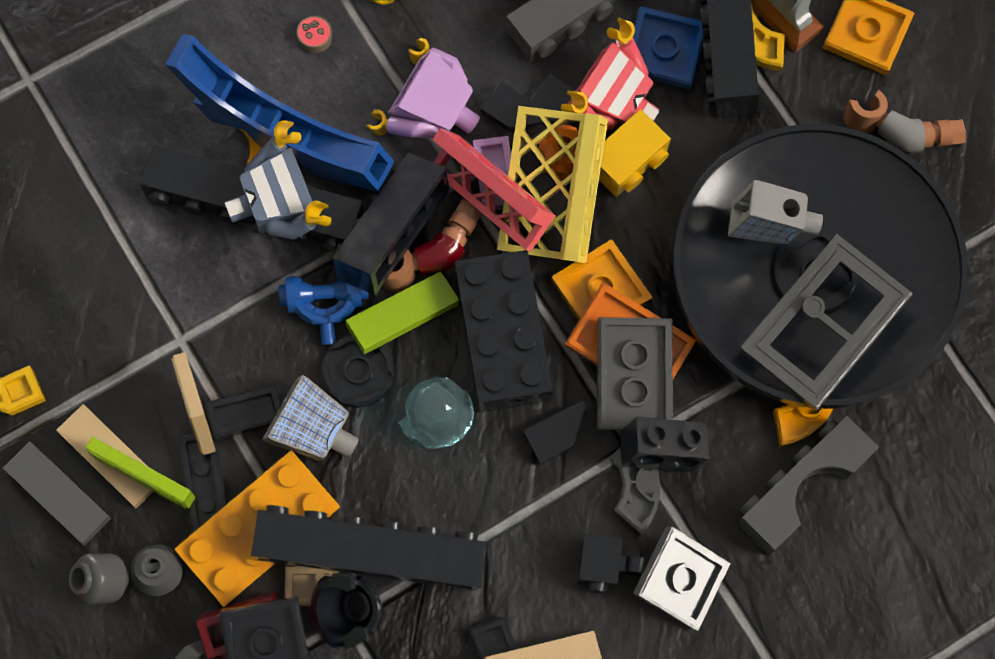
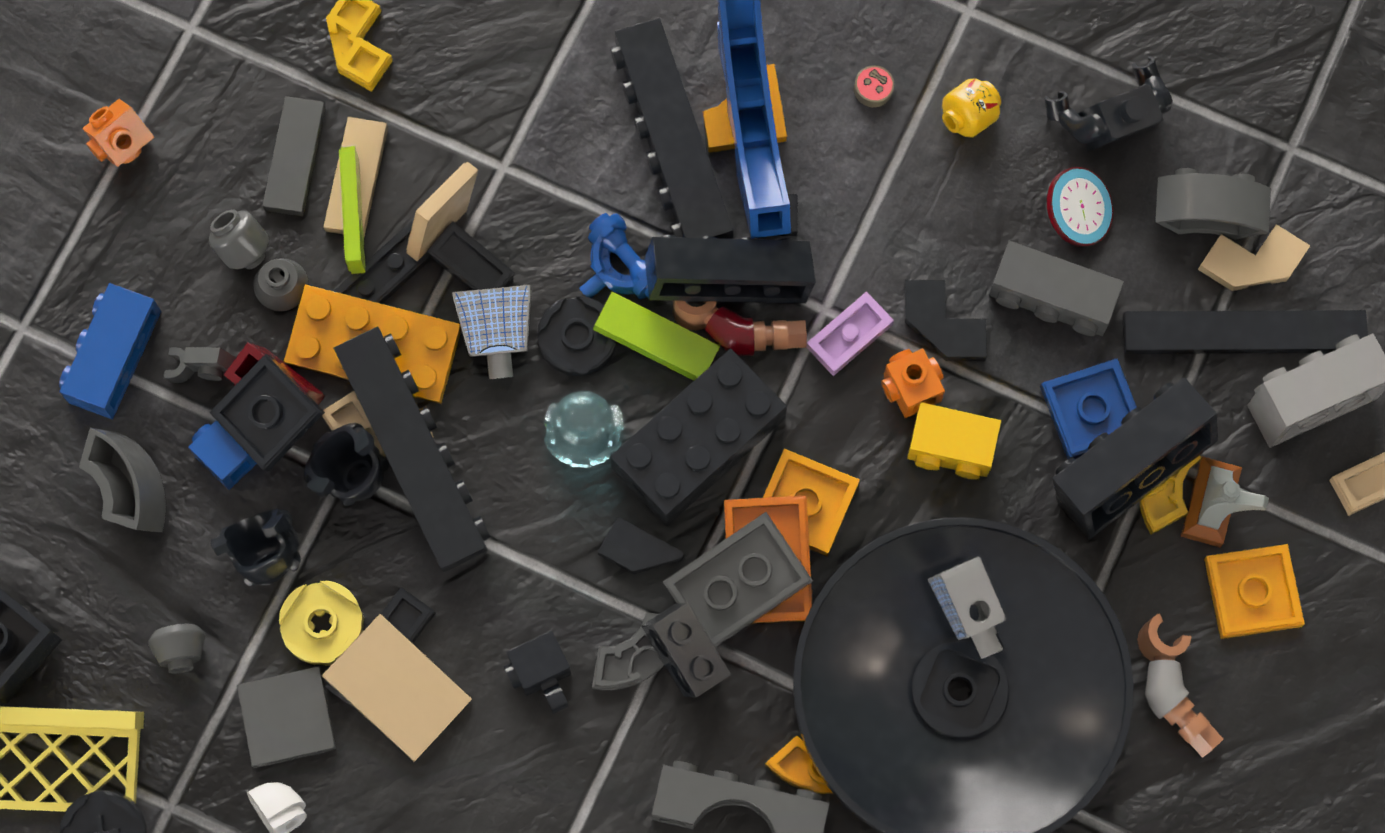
camera: 60 degrees right, 0 degrees up
(277, 190) = (684, 148): torso -> none
(430, 98) = (880, 227): lavender torso -> none
(496, 184) = (829, 340): coral fence -> none
(583, 179) = (875, 418): light yellow fence -> none
(615, 82) = (1009, 383): torso -> none
(681, 578) = (571, 747): tile -> none
(813, 307) = (908, 683): dark grey door -> none

